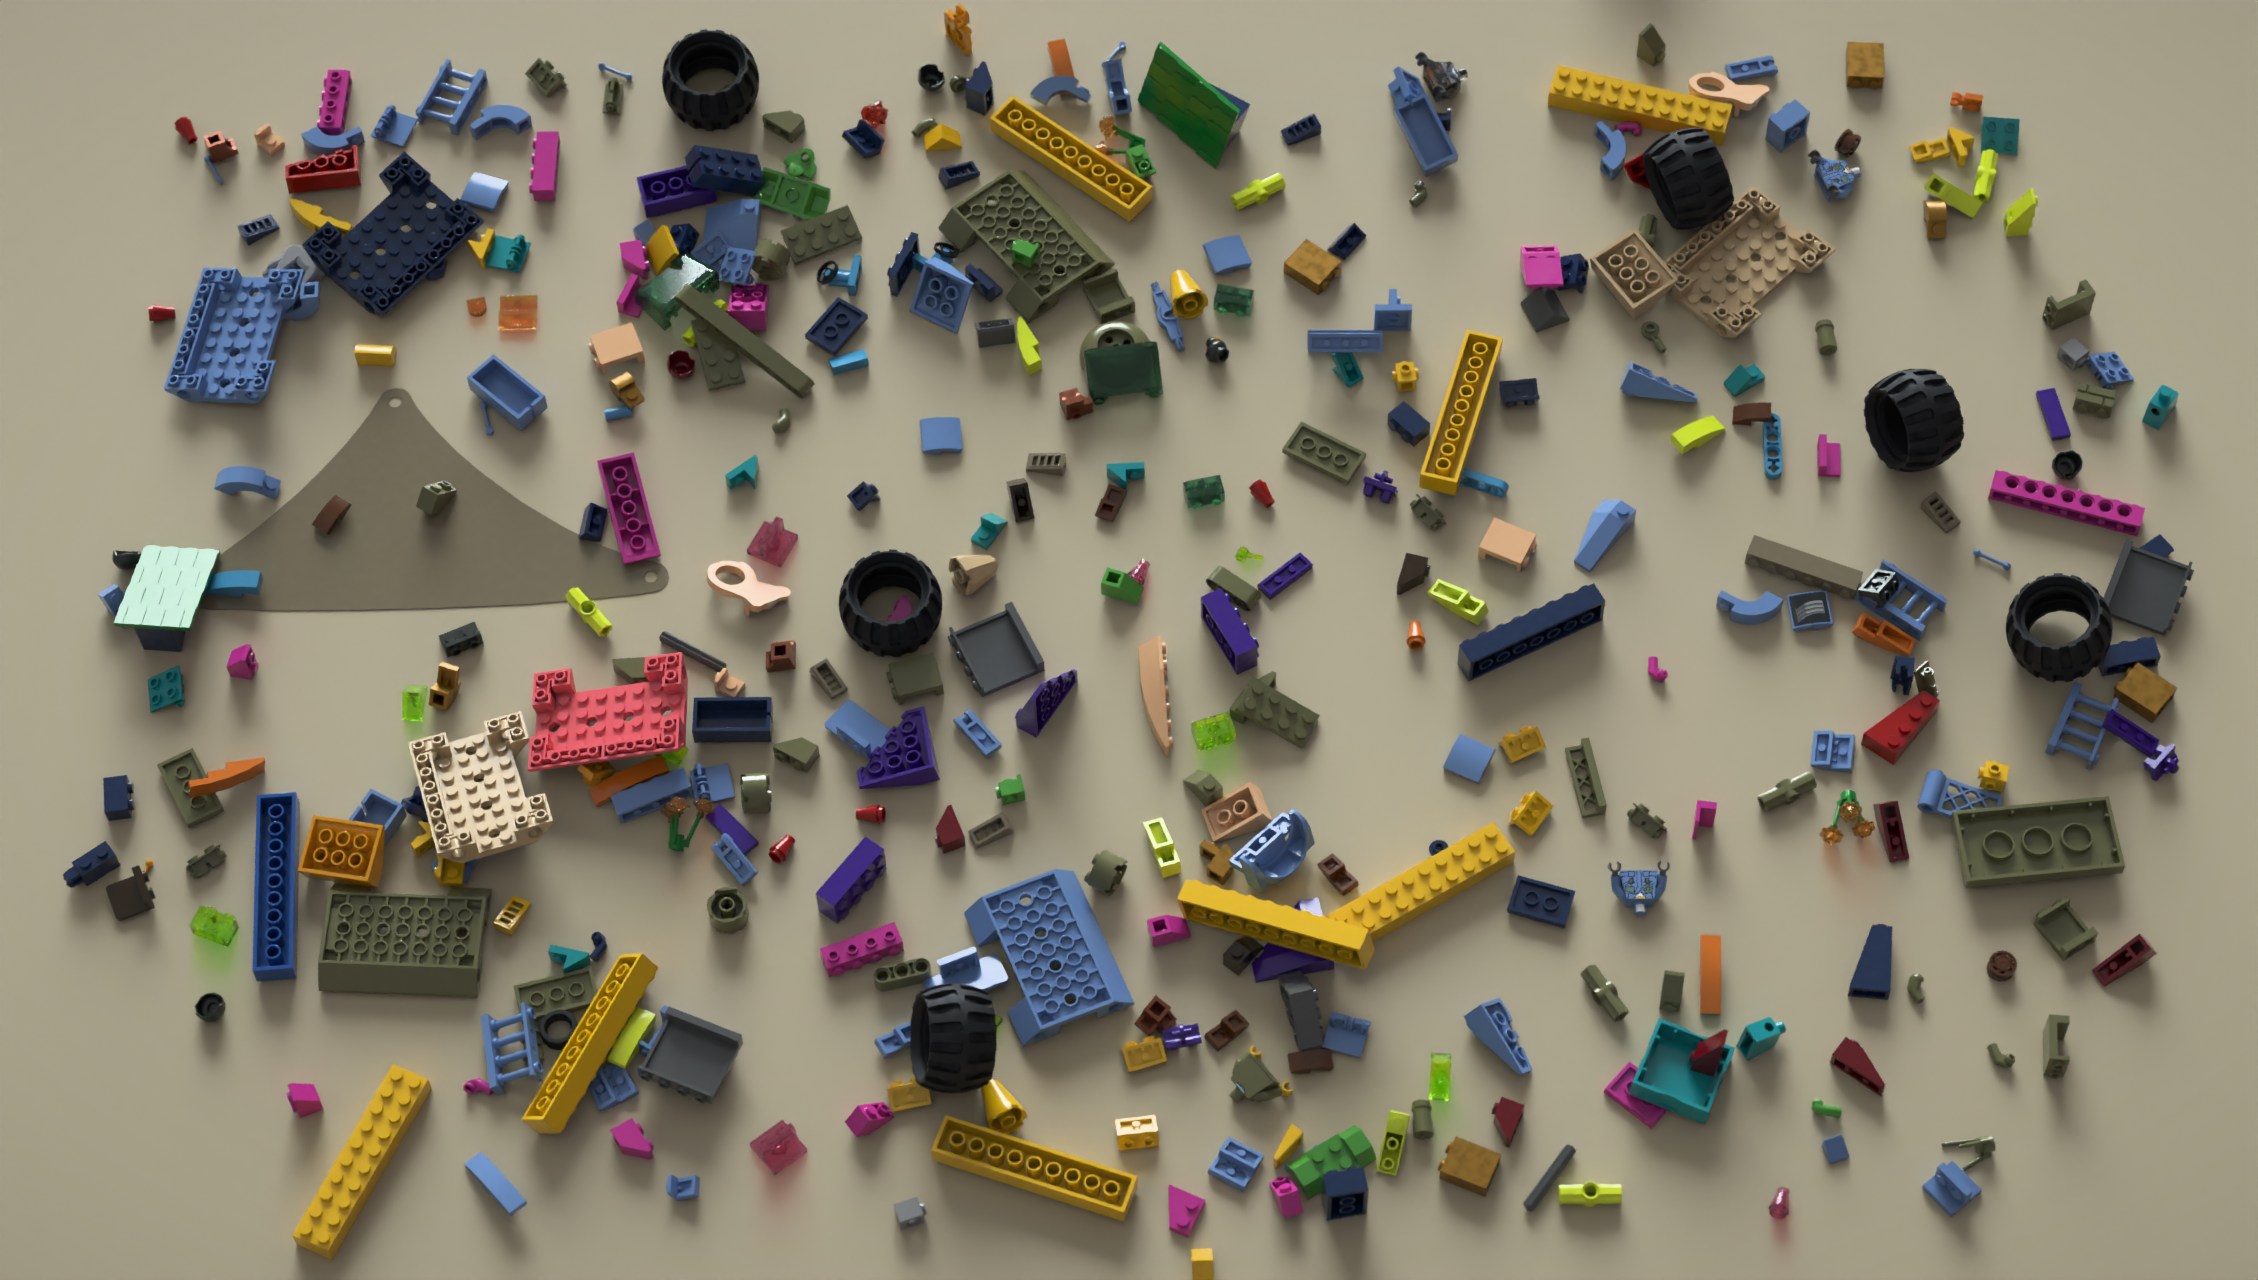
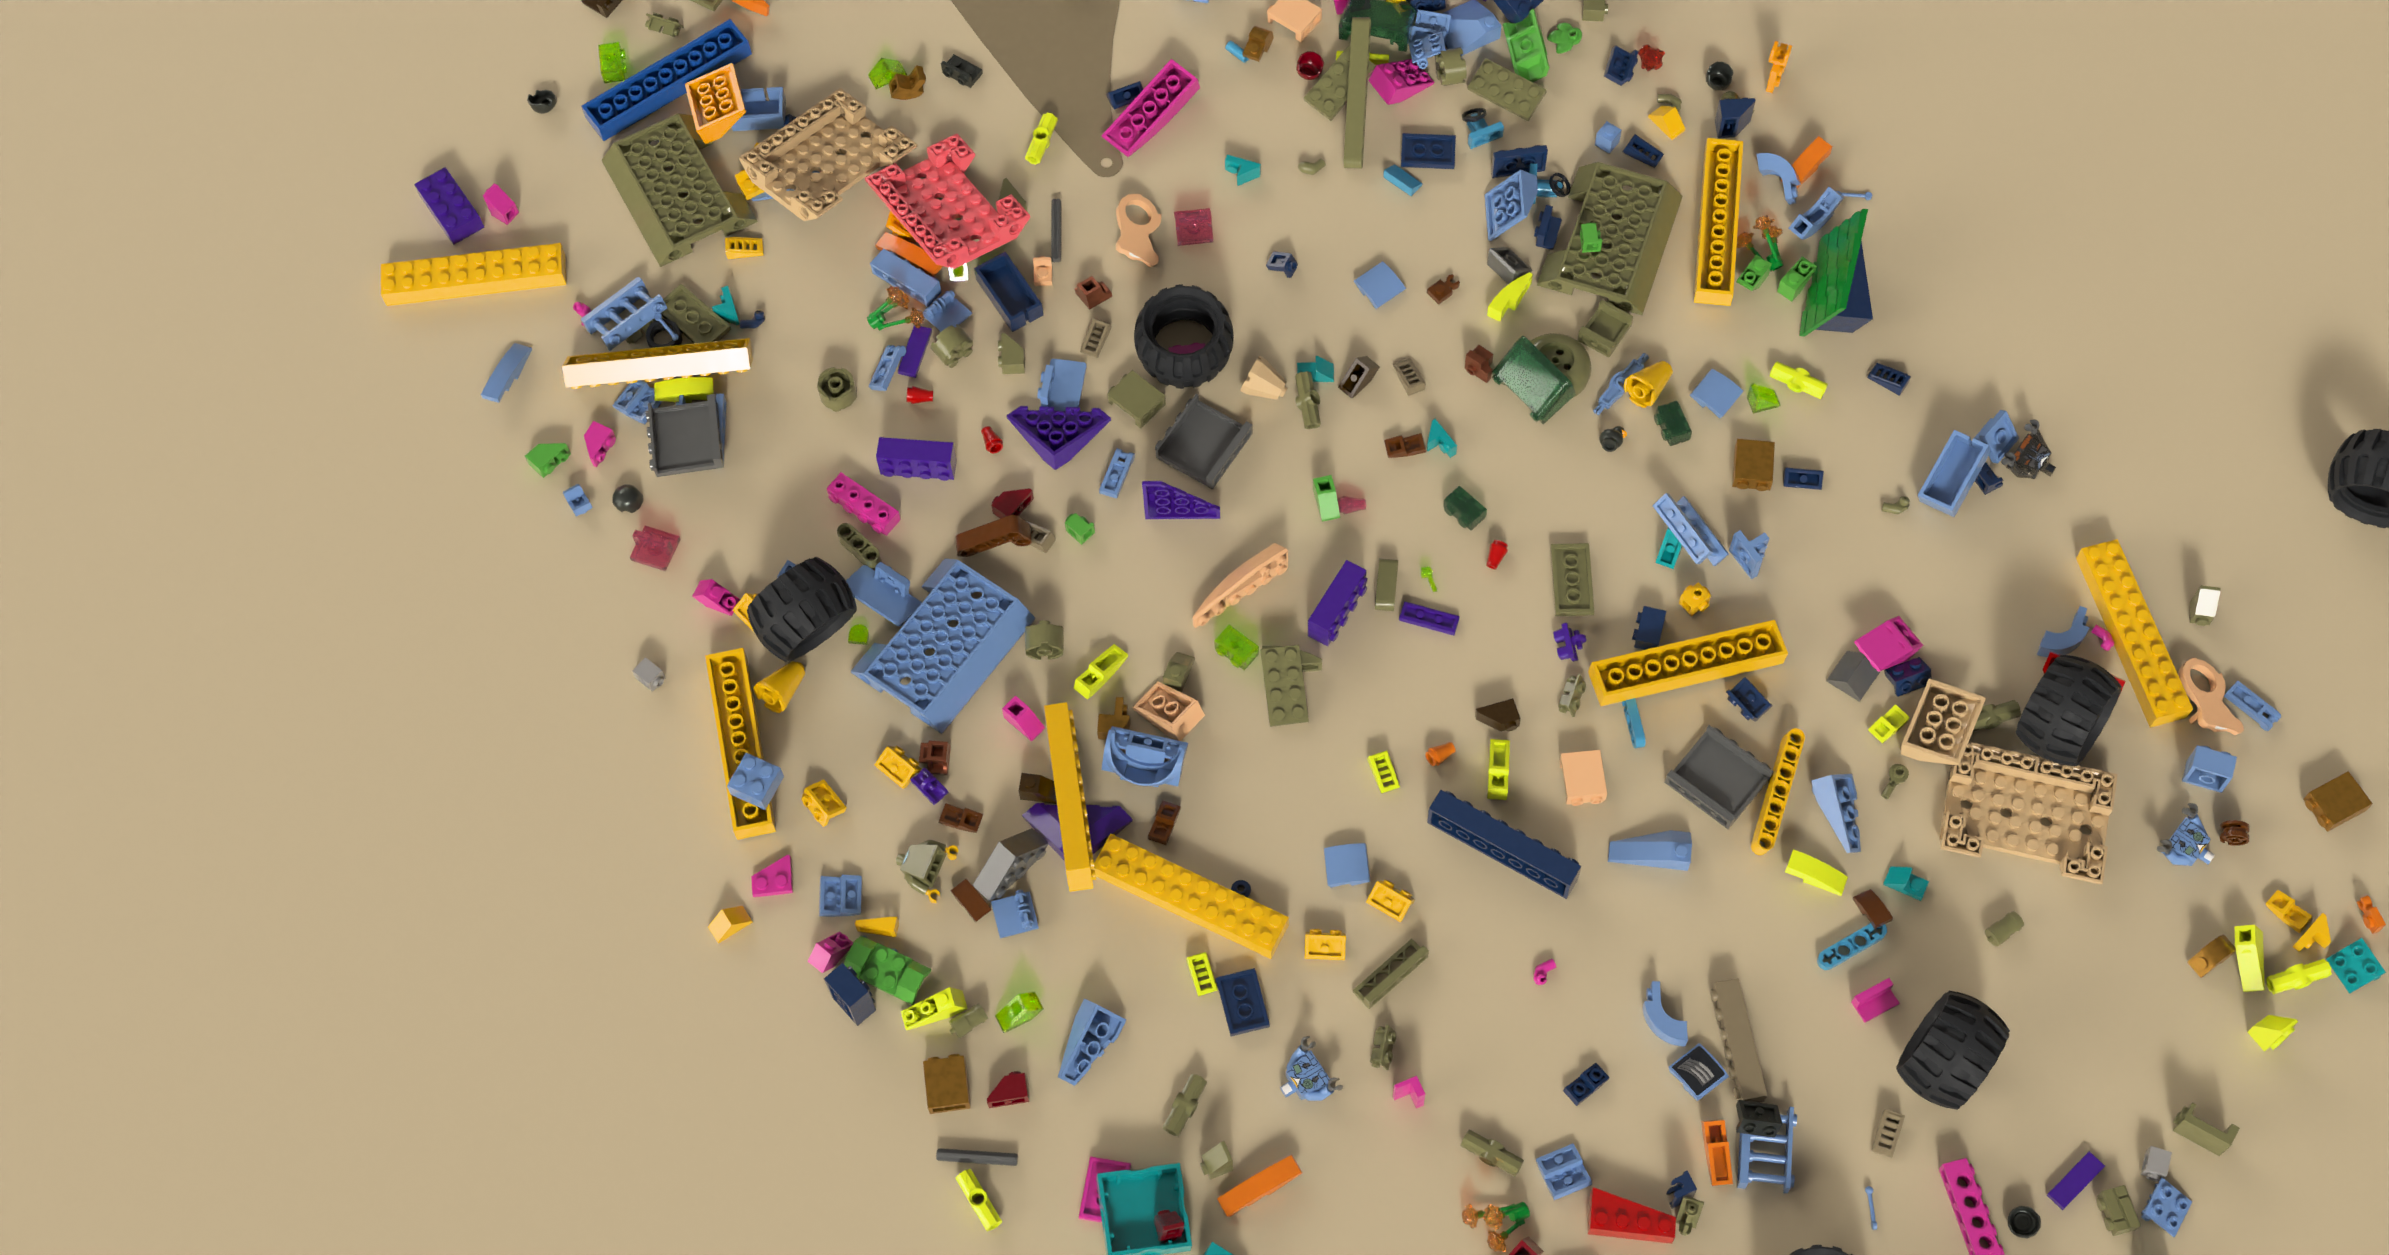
camera: 60 degrees right, 5 degrees up
(266, 1146) = (449, 205): none -> dark purple brick
(538, 1021) = (658, 317): none -> medium blue hinge
(614, 1192) = (547, 457): none -> bright green slope
(709, 1145) = (627, 498): none -> pearl dark grey hair
(927, 189) = (1608, 137): none -> medium blue brick
(974, 860) = (993, 534): none -> reddish brown beam
(980, 393) = (1442, 290): none -> reddish brown plate
(1016, 549) = (1307, 400): none -> olive piece
(1092, 1165) = (755, 781): none -> medium blue brick
(1166, 137) = (1796, 279): none -> bright green slope
(1256, 227) = (1762, 398): none -> clear neon green slope
(1393, 690) = (1387, 762): none -> neon yellow slope
(1489, 911) = (1201, 956): none -> neon yellow slope
(1570, 451) = (1719, 777): none -> dark grey panel
(1603, 311) = (1889, 724): none -> neon yellow slope
(1612, 418) = (1774, 799): none -> yellow beam
(1770, 694) = (1586, 1084): none -> dark blue slope

